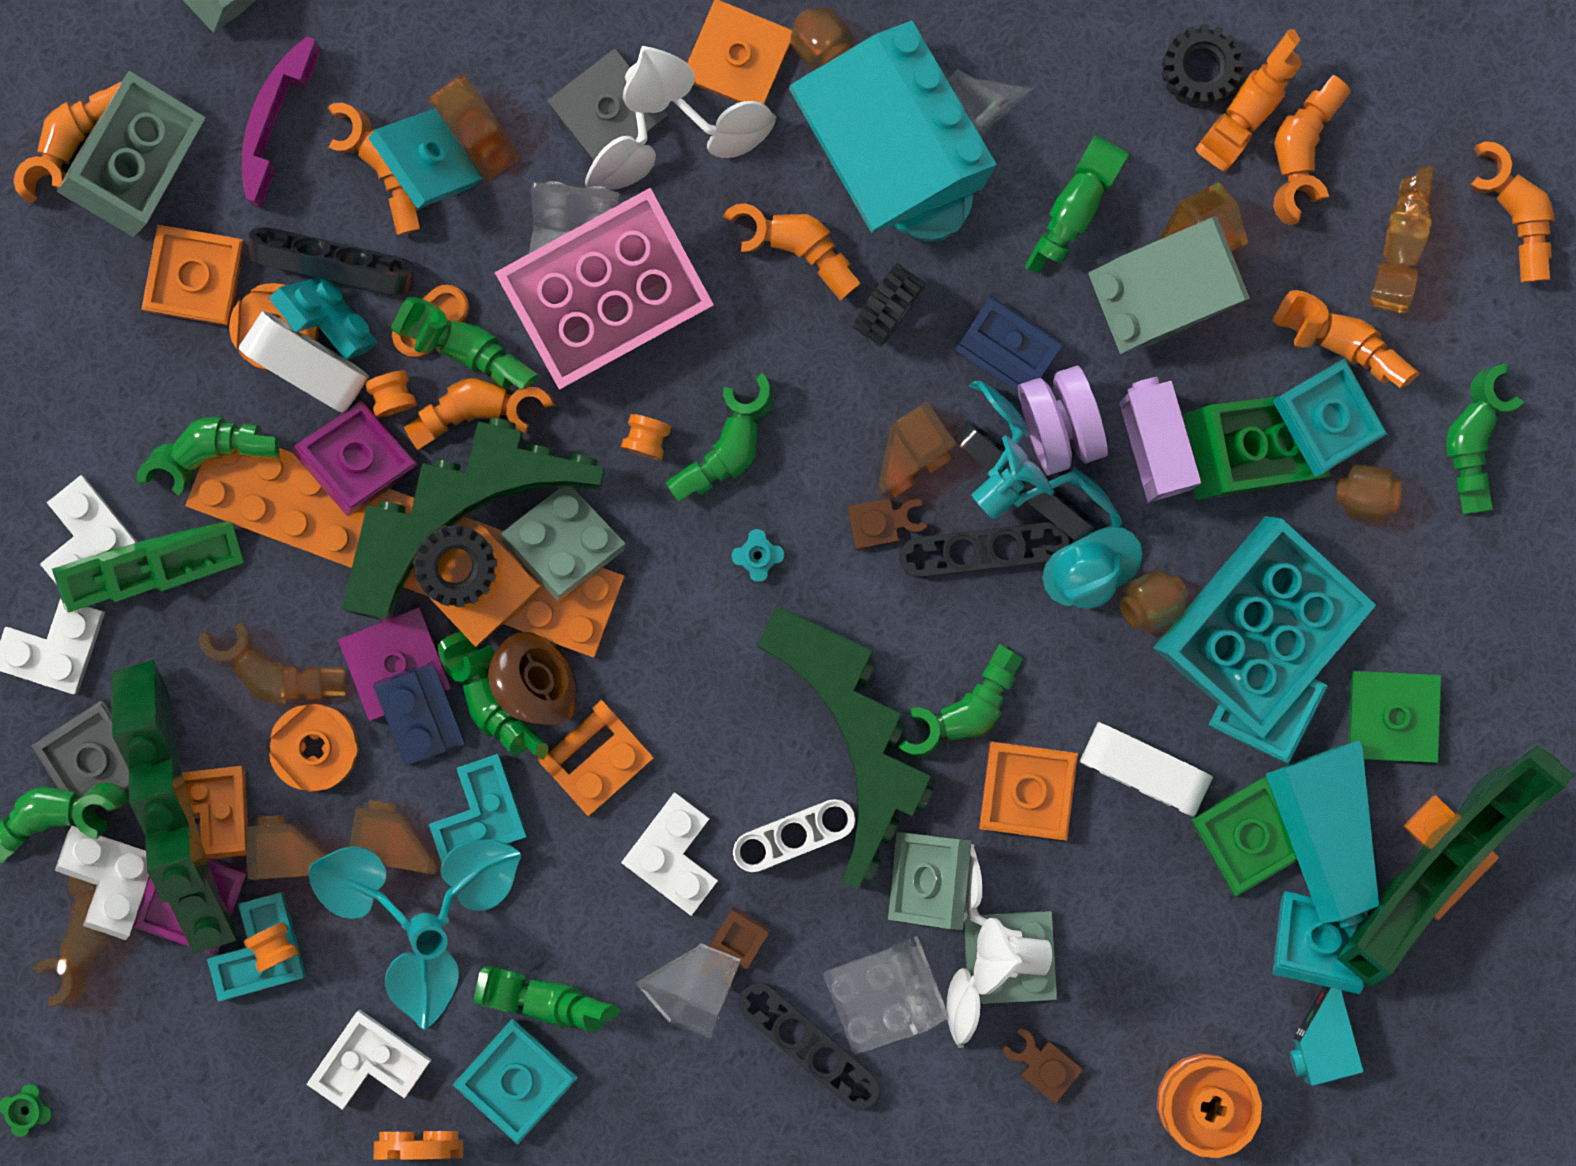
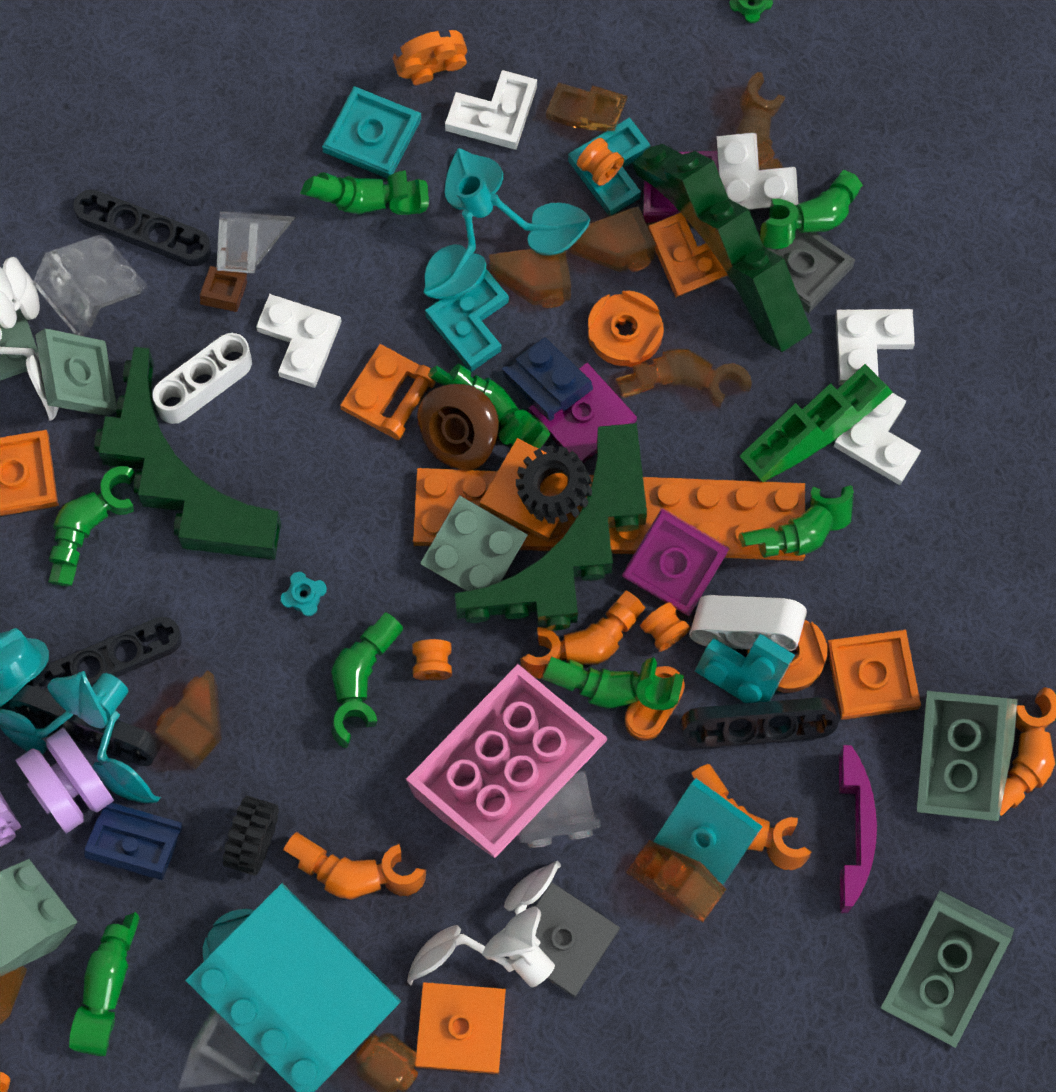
camera: 160 degrees right, 15 degrees down
(262, 1031) = (584, 109): none -> clear orange slope
(877, 522) = (206, 652): reddish brown plate -> none

